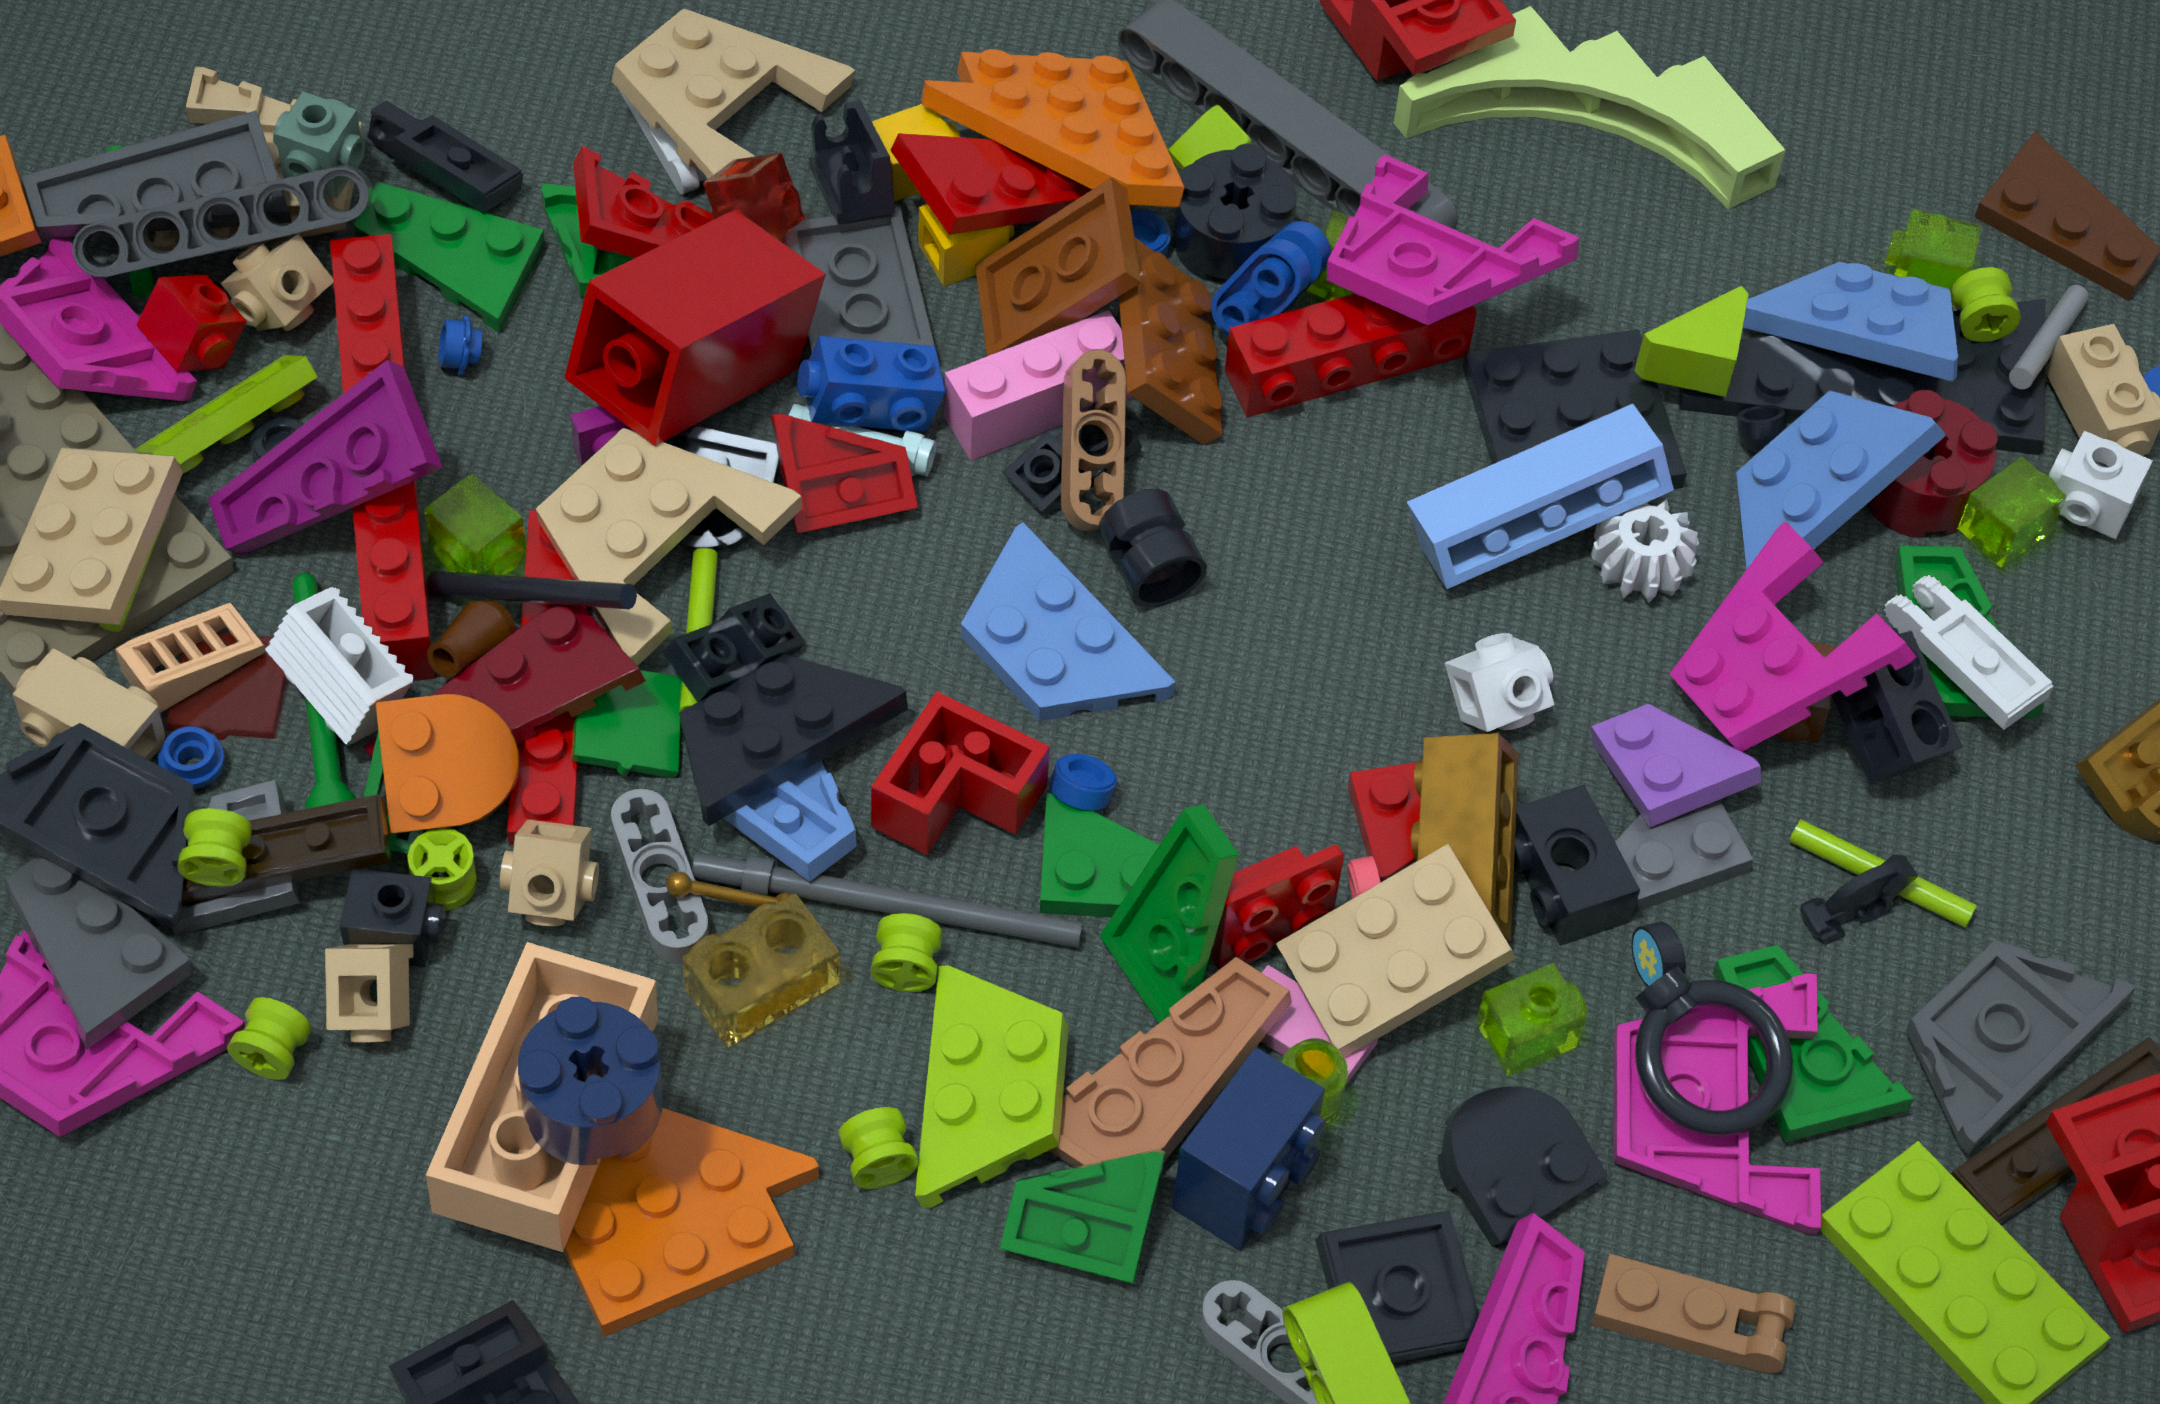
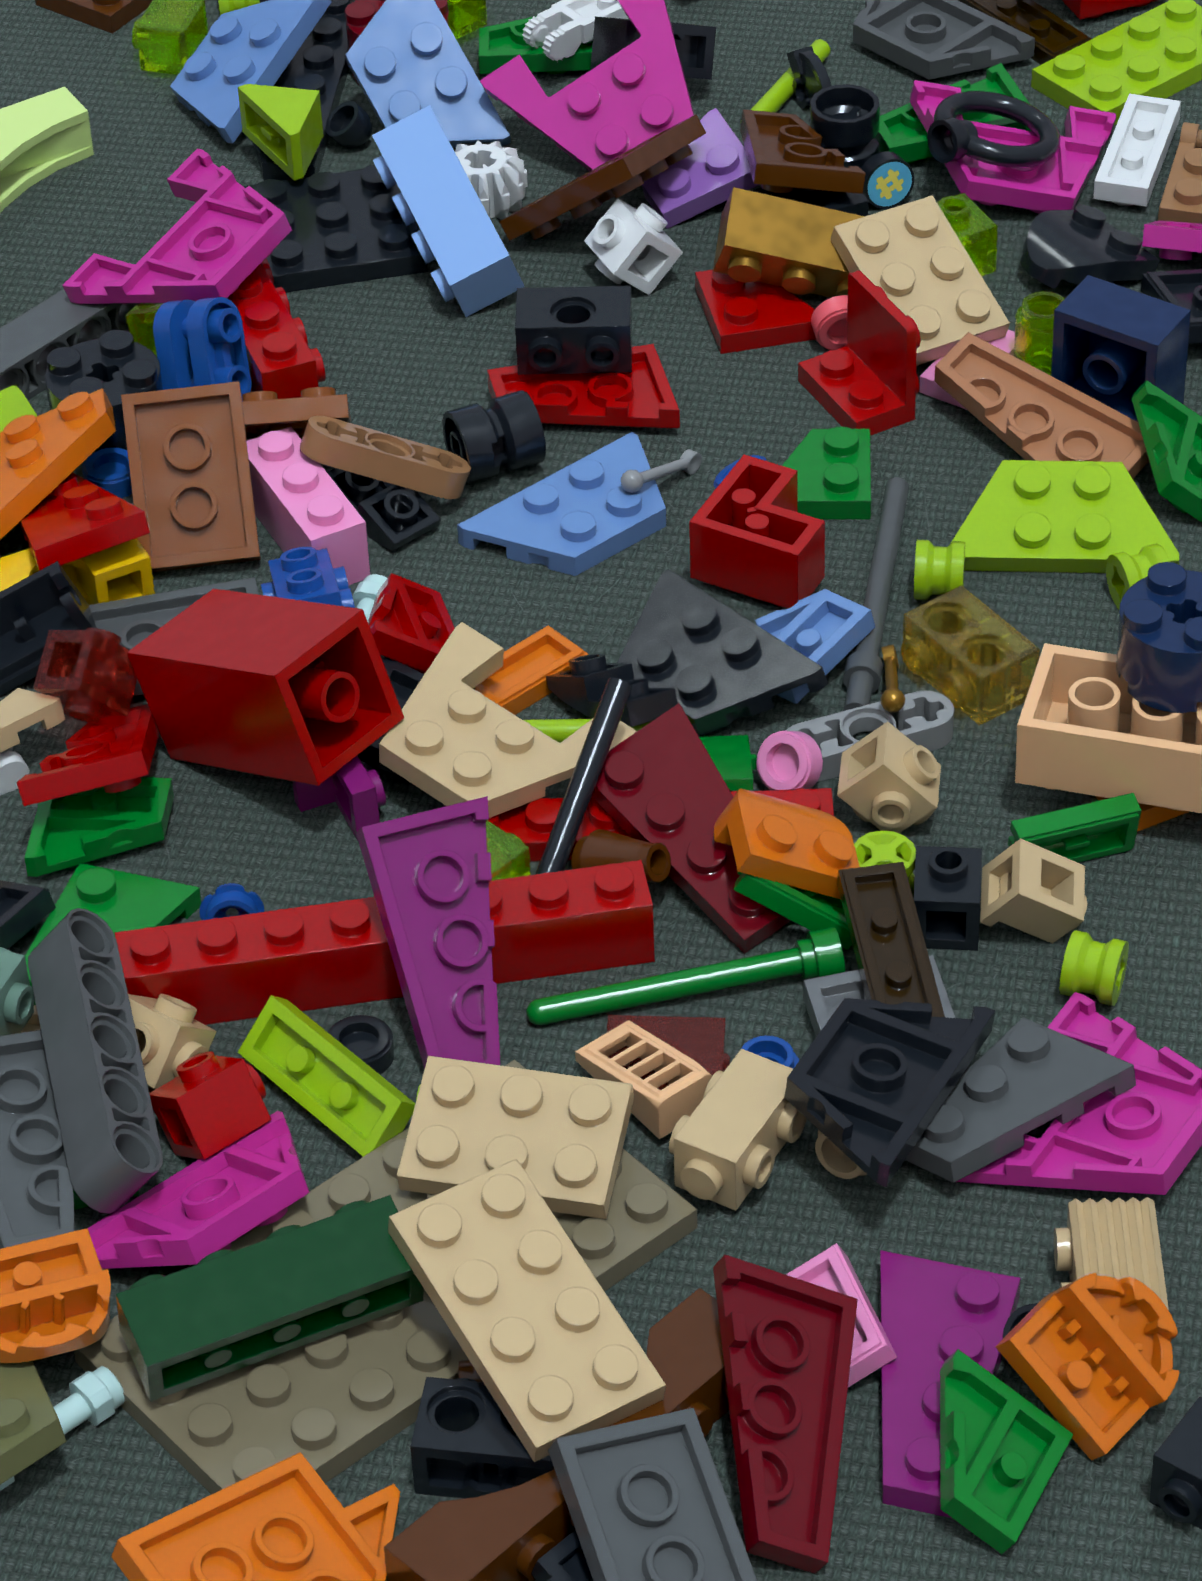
camera: 85 degrees left, 15 degrees down
(214, 847) = (920, 971): lime wheel -> none
(338, 663) = (682, 921): white brick -> none
(457, 1021) = (1083, 830): none -> green tile
(607, 793) = (789, 761): none -> bright pink tile
(795, 580) = (525, 670): none -> orange tile
(1058, 665) = (689, 462): none -> light grey hinge
(1174, 911) = (907, 392): green wing -> none
(1253, 646) = (604, 399): none -> red wing
(1310, 641) = (574, 330): none -> black brick
(1584, 630) = (606, 181): none -> reddish brown plate
(1640, 826) = (789, 155): none -> reddish brown wing
(1734, 905) = (847, 121): none -> black wheel
(1739, 1244) = (1137, 150): none -> white plate

